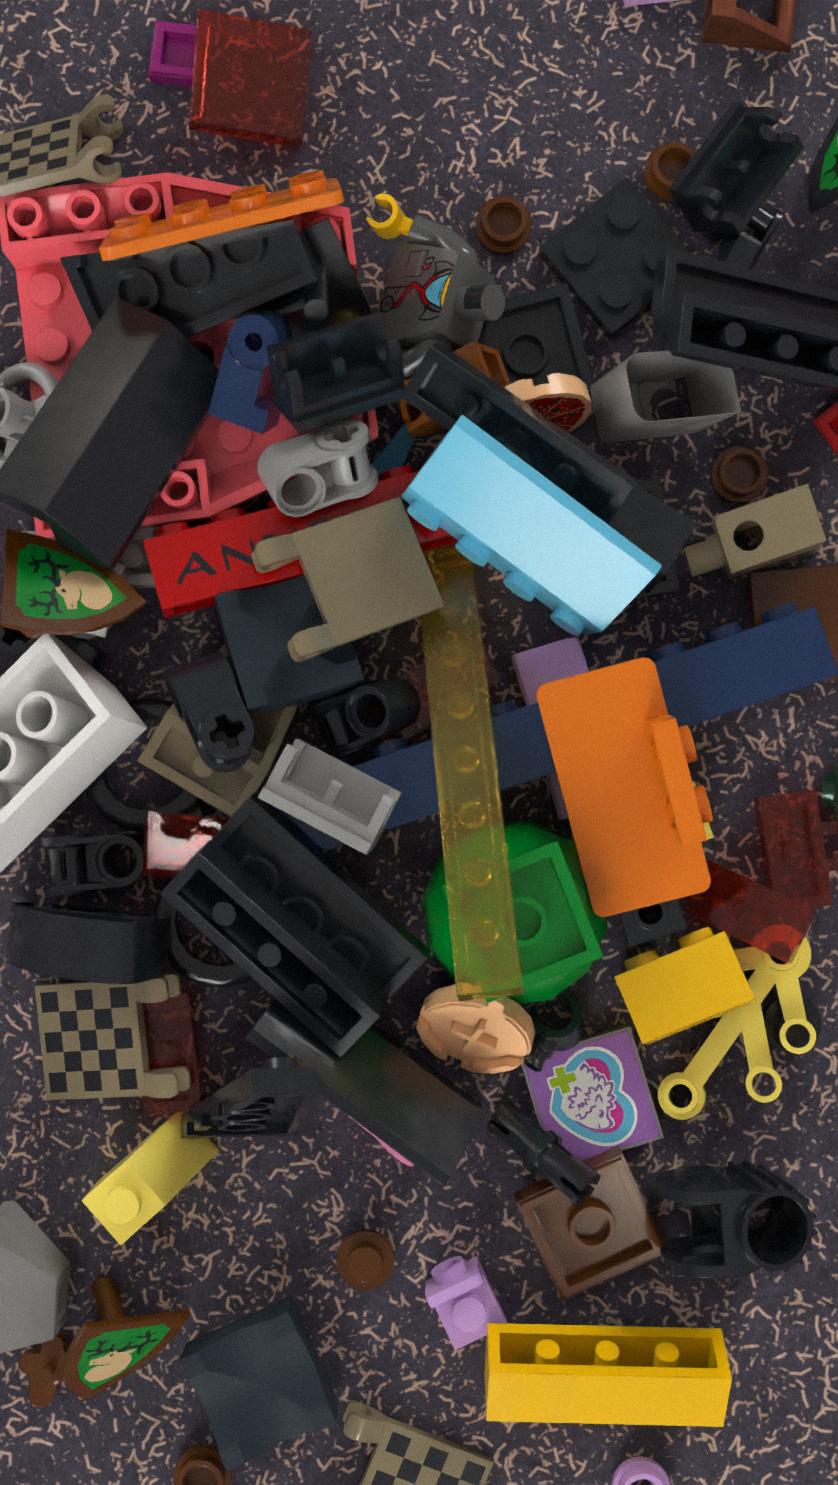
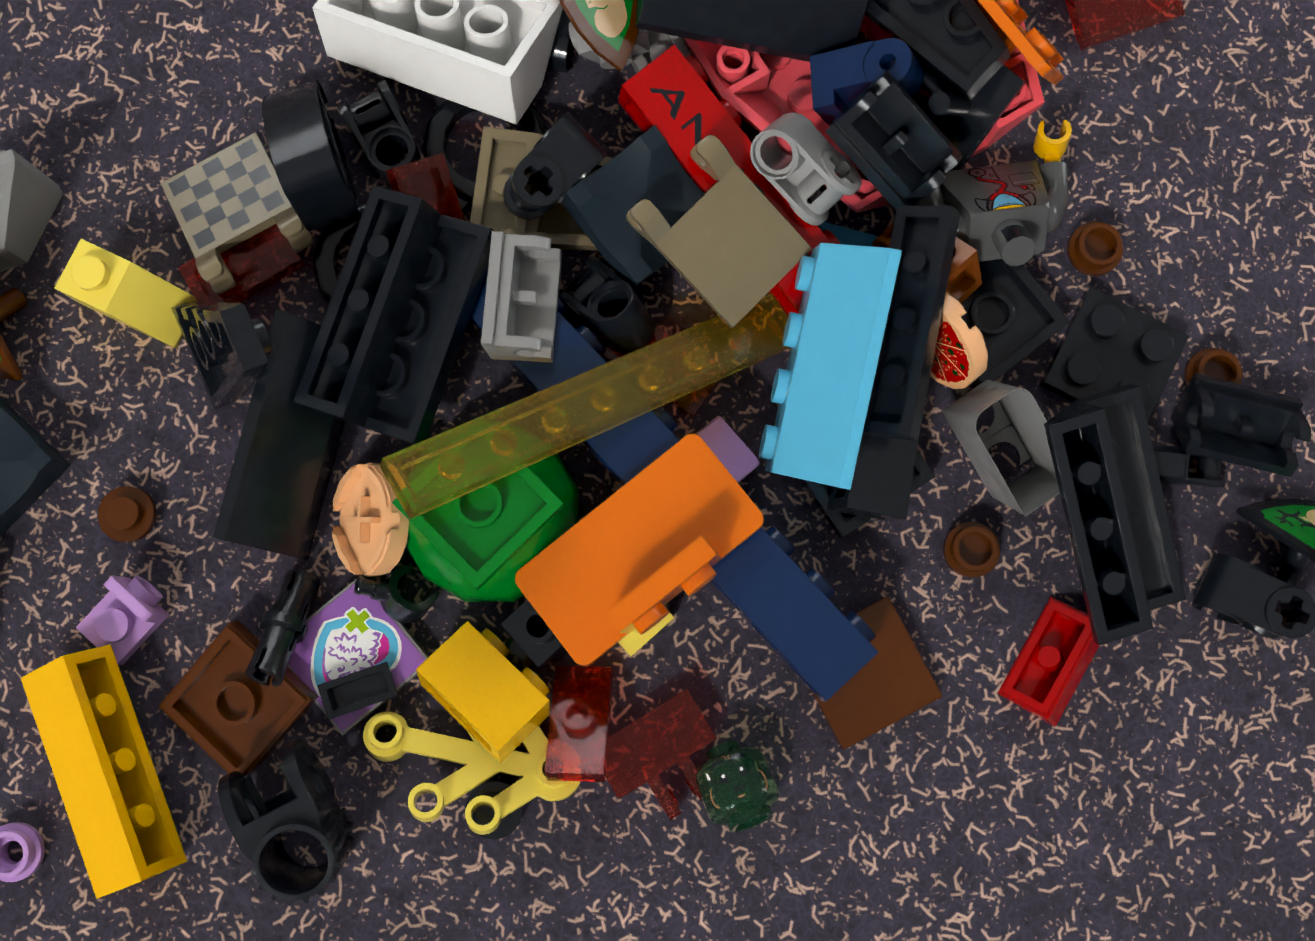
camera: 60 degrees right, 5 degrees down
(630, 1106) = (357, 690): none -> black piece
(782, 524) = (929, 606): dark tan torso -> none

